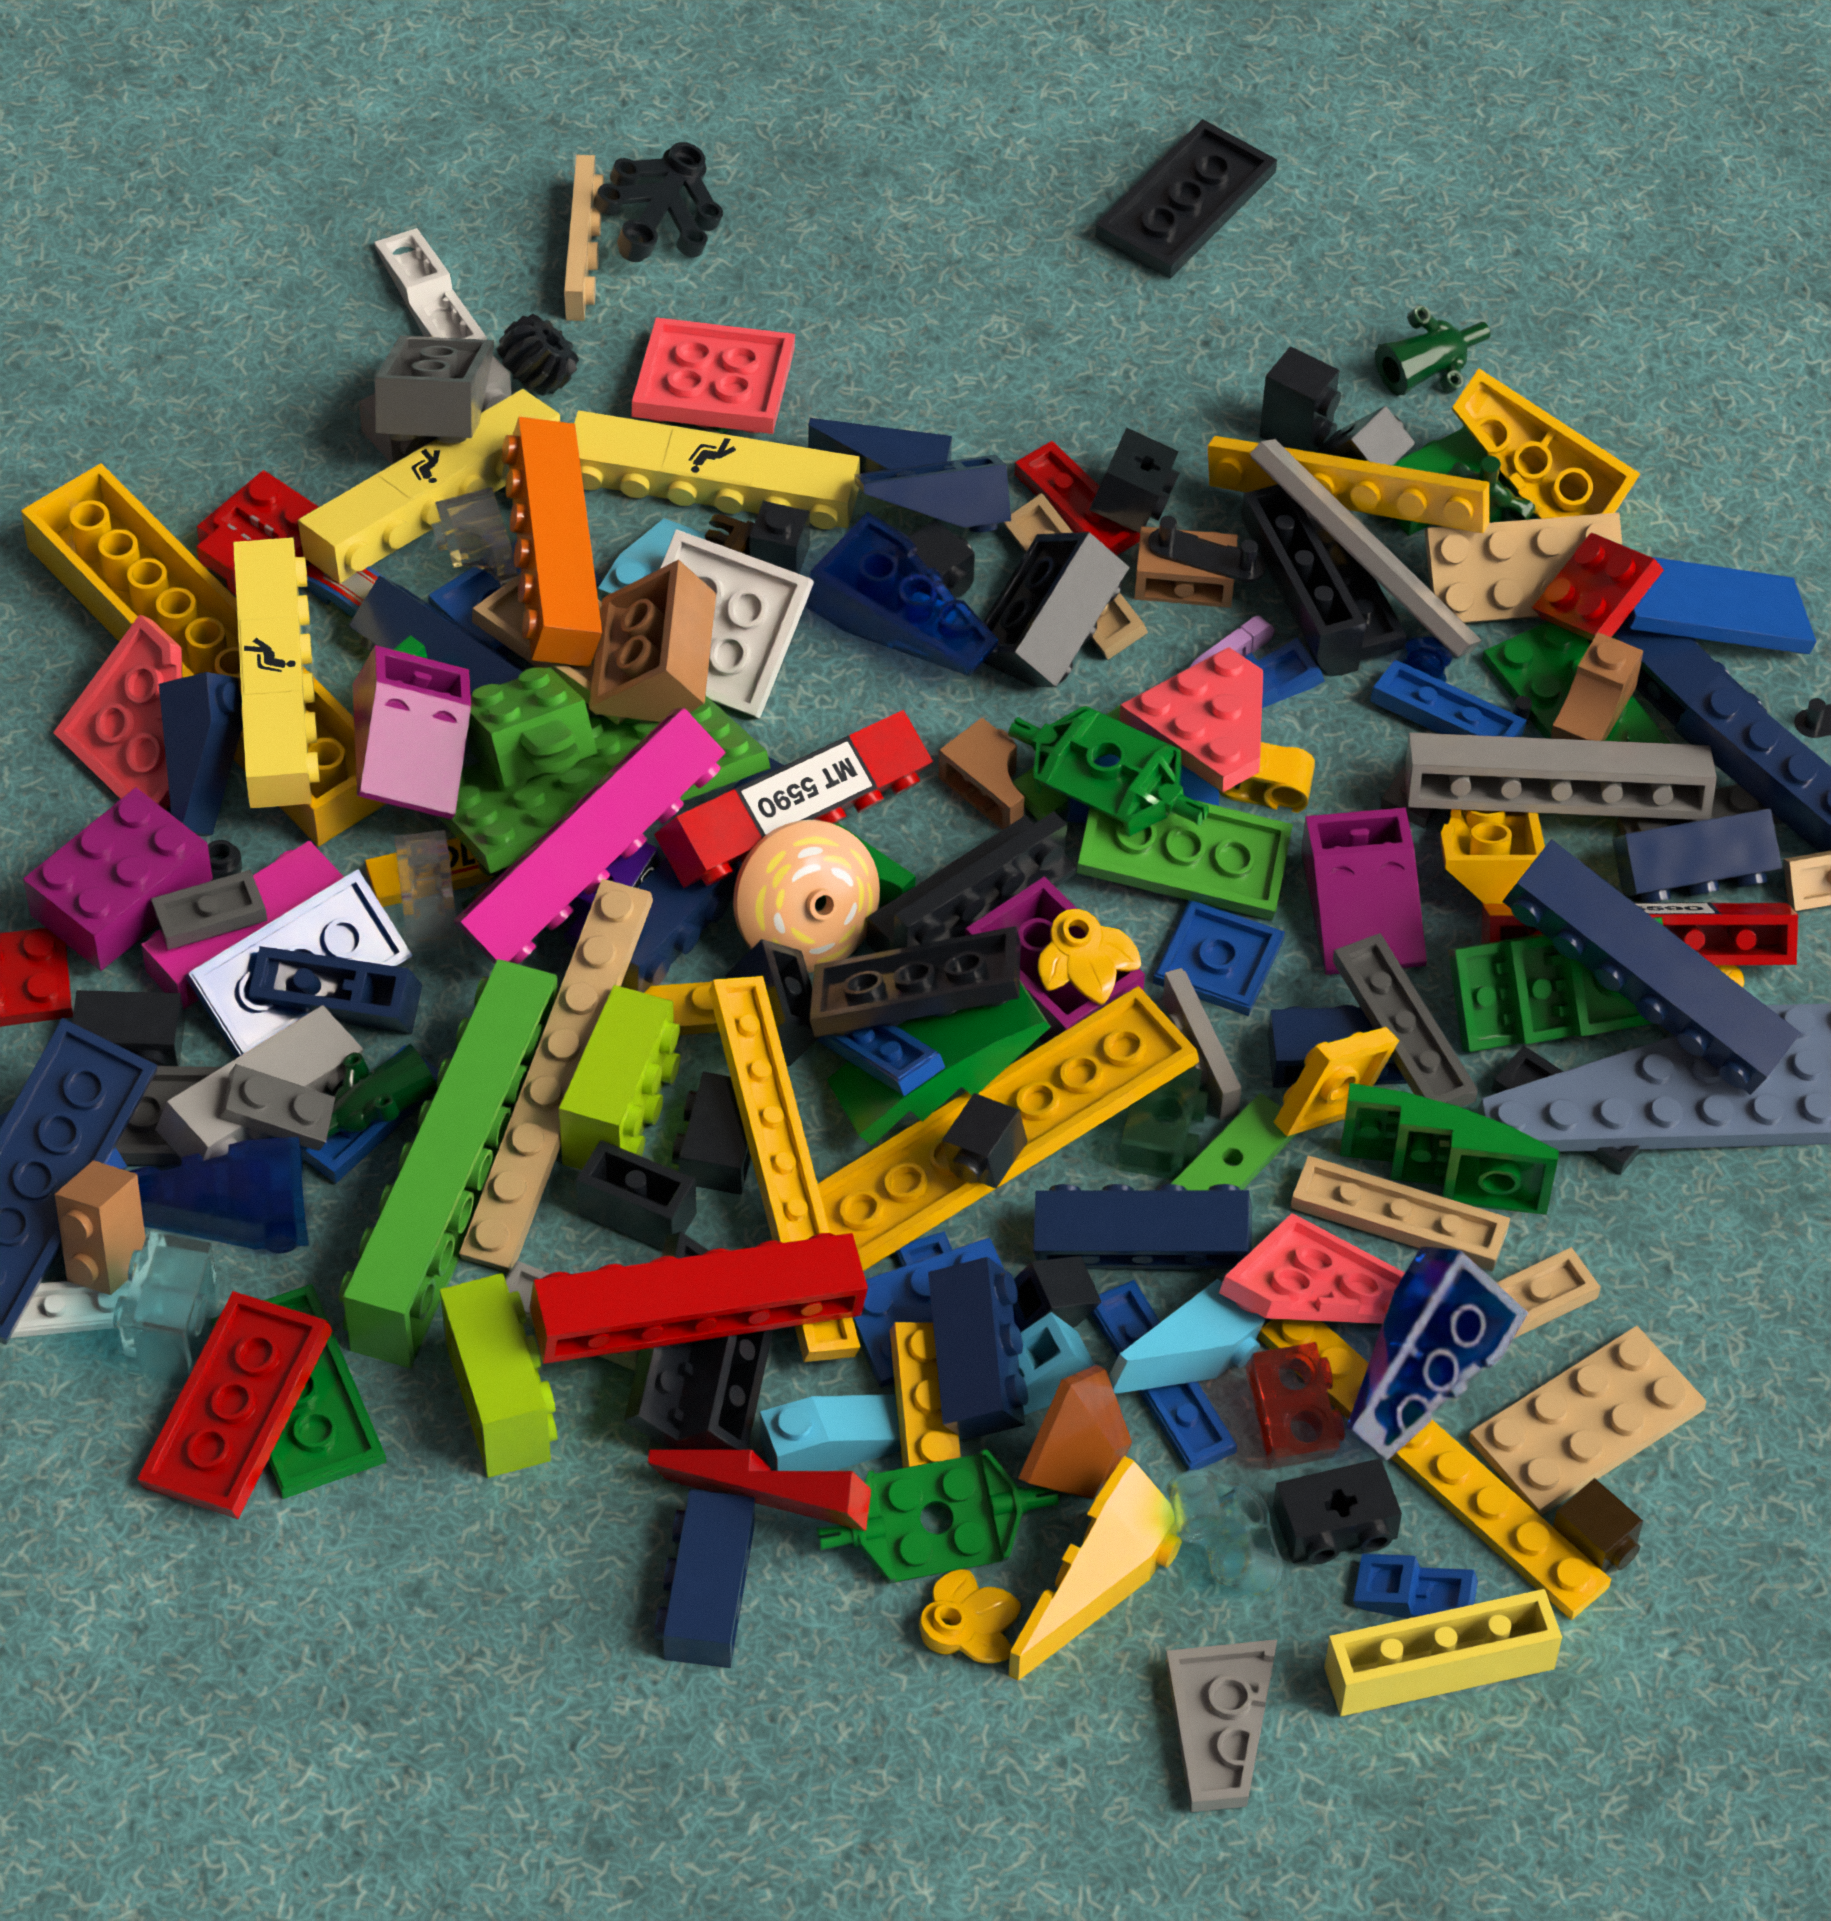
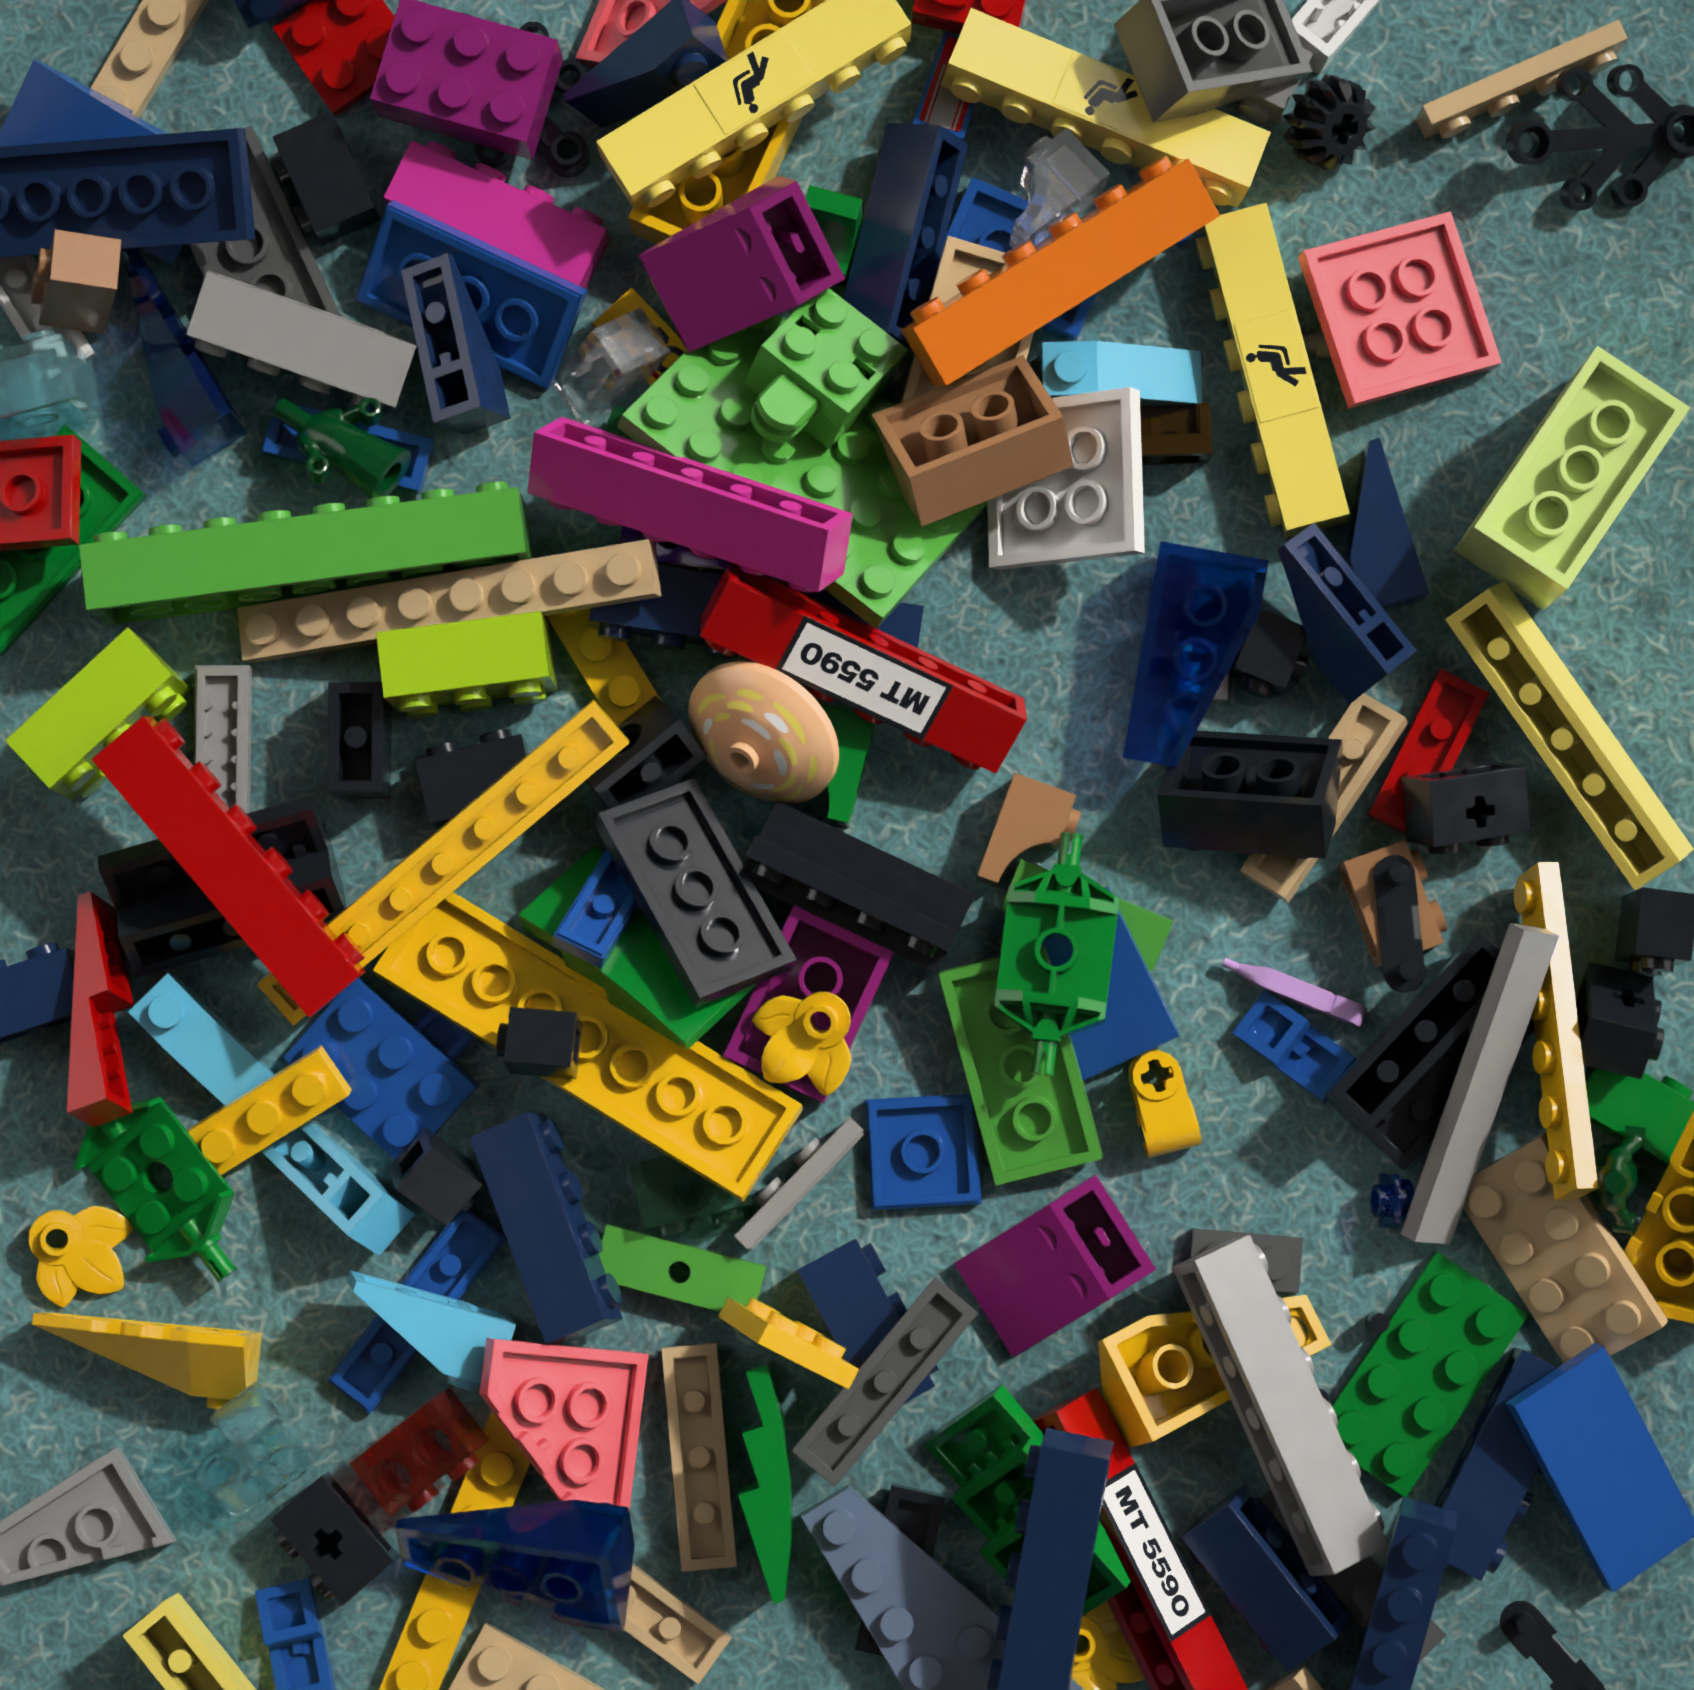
camera: 70 degrees right, 30 degrees up
(209, 909) = (465, 183): dark grey plate -> none
(277, 1107) = (266, 370): dark grey plate -> none
(781, 536) = (1213, 483): black brick -> none
(918, 310) = (1571, 479): none -> yellowish green brick
(977, 1348) = (321, 1140): dark blue brick -> none
(1079, 1437) = (275, 1282): dark orange slope -> none
(1115, 400) = (1569, 735): none -> light yellow brick
(1208, 715) = (1181, 1020): coral plate -> none
(1441, 705) = (1338, 1248): blue plate -> none
(1597, 587) = (1542, 1348): red plate -> none
(1599, 690) = (1409, 1400): medium nougat arch -> none

